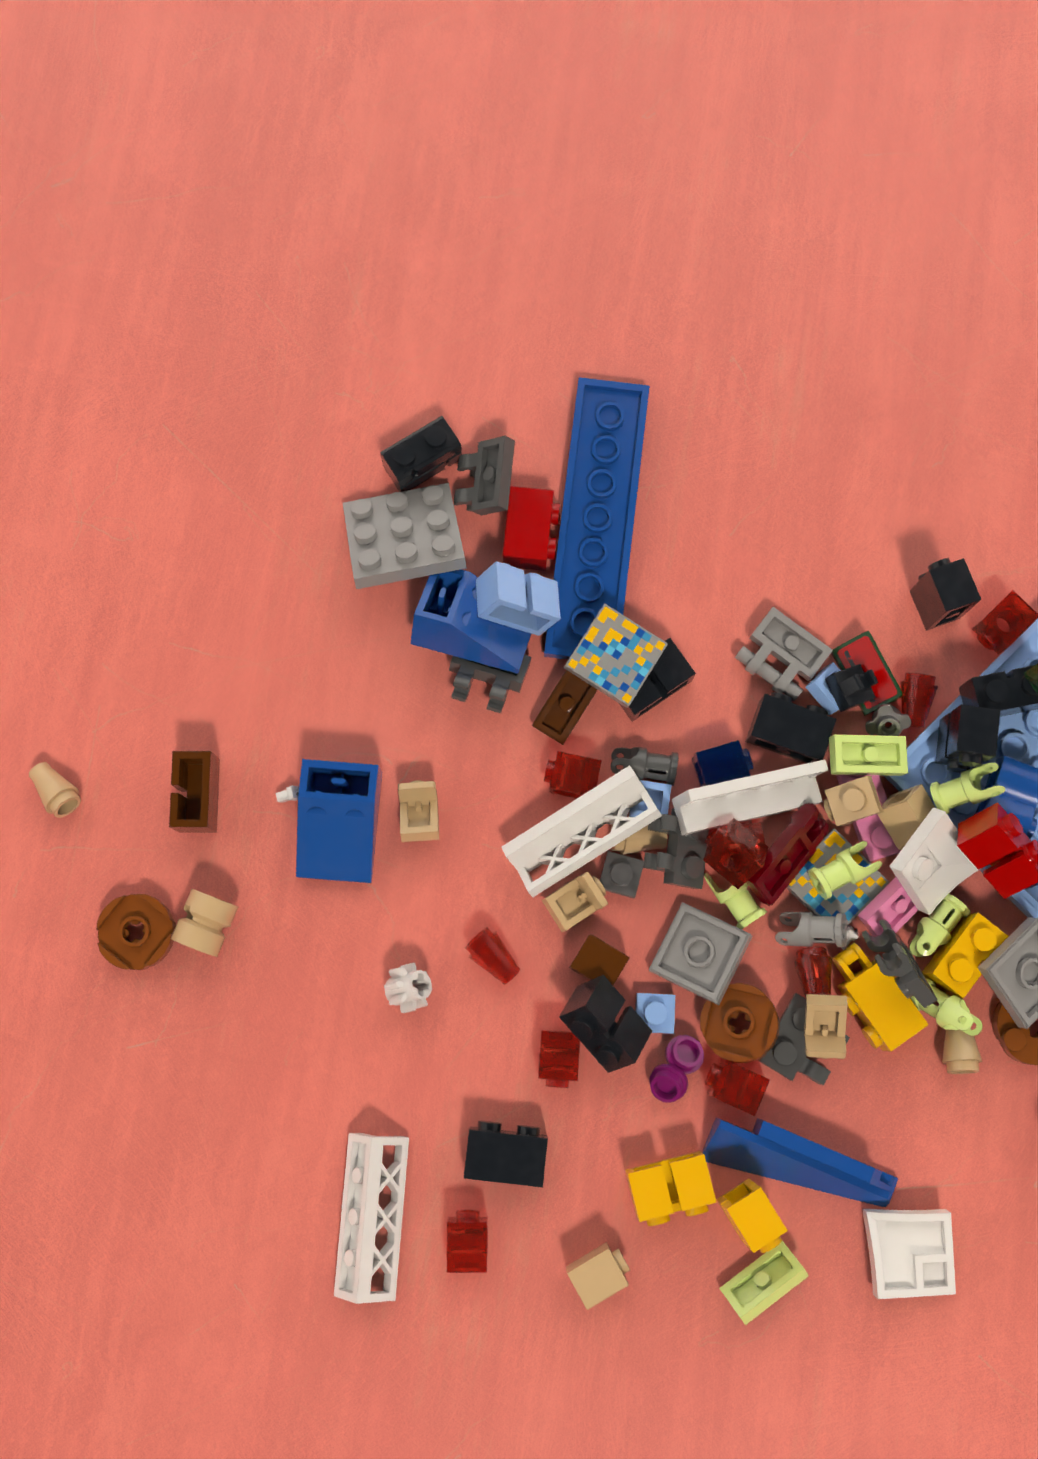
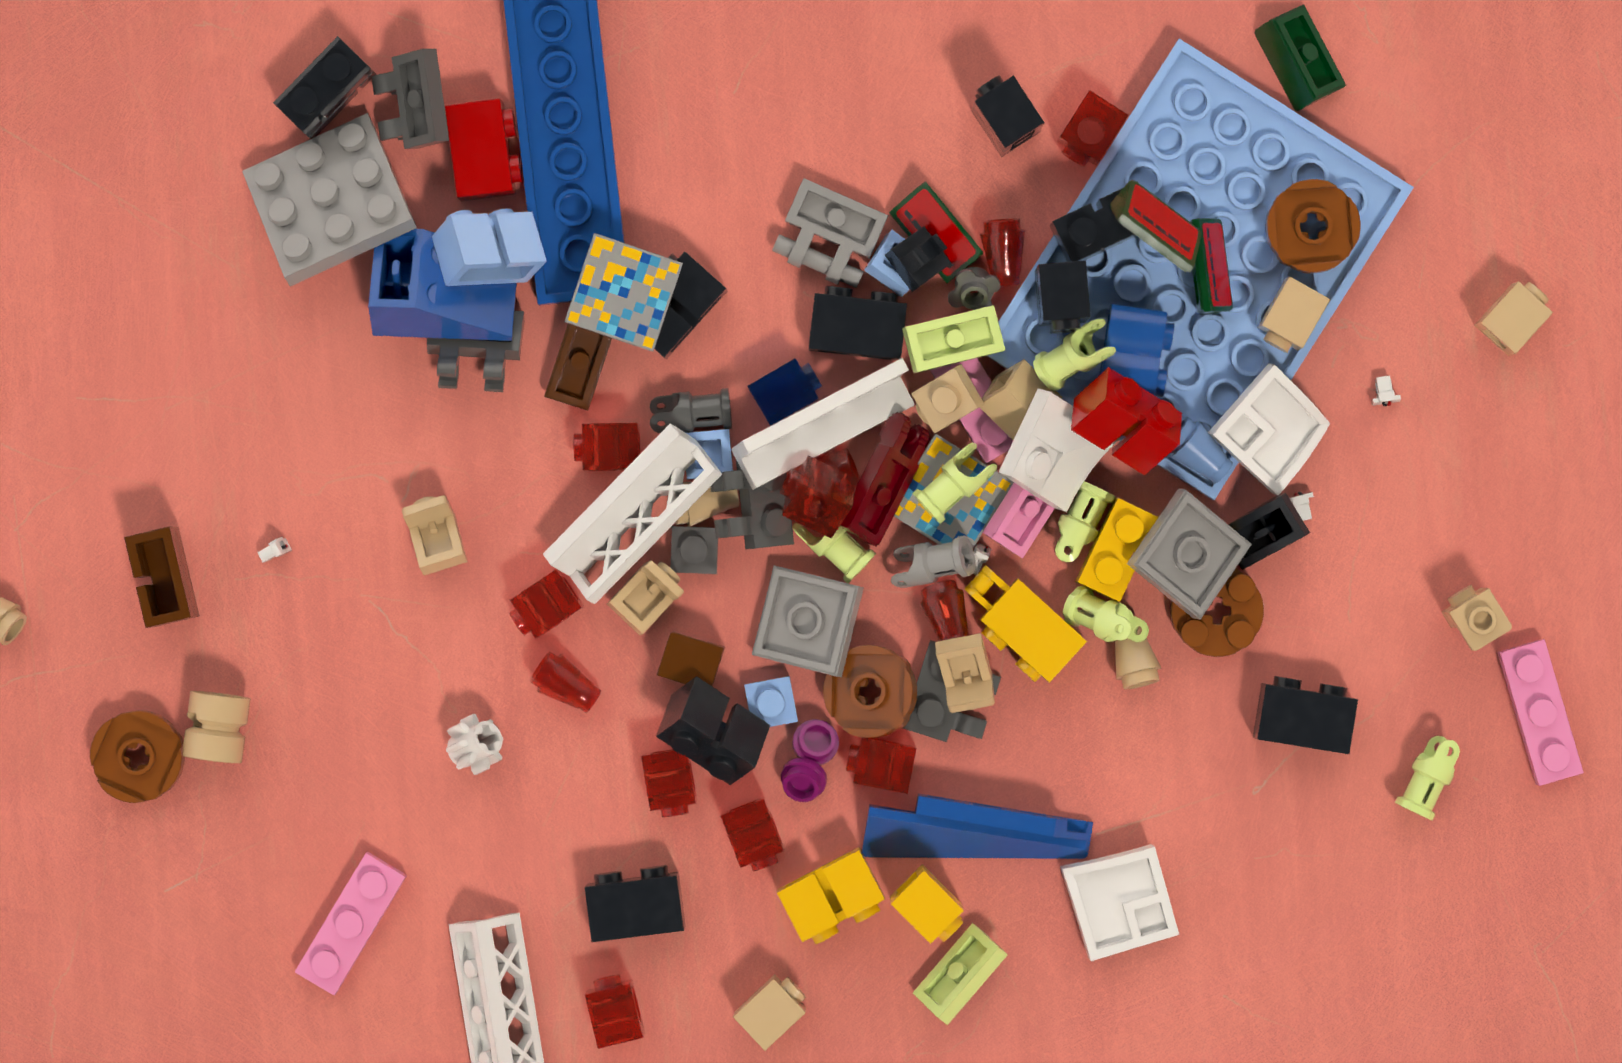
camera: 10 degrees left, 10 degrees up
(269, 1112) = (350, 923): none -> bright pink plate
(337, 820) = (341, 569): blue slope -> none
(492, 888) = (545, 605): none -> clear red brick
(617, 1119) = (753, 834): none -> clear red brick
(901, 963) = (1041, 577): dark grey plate -> none

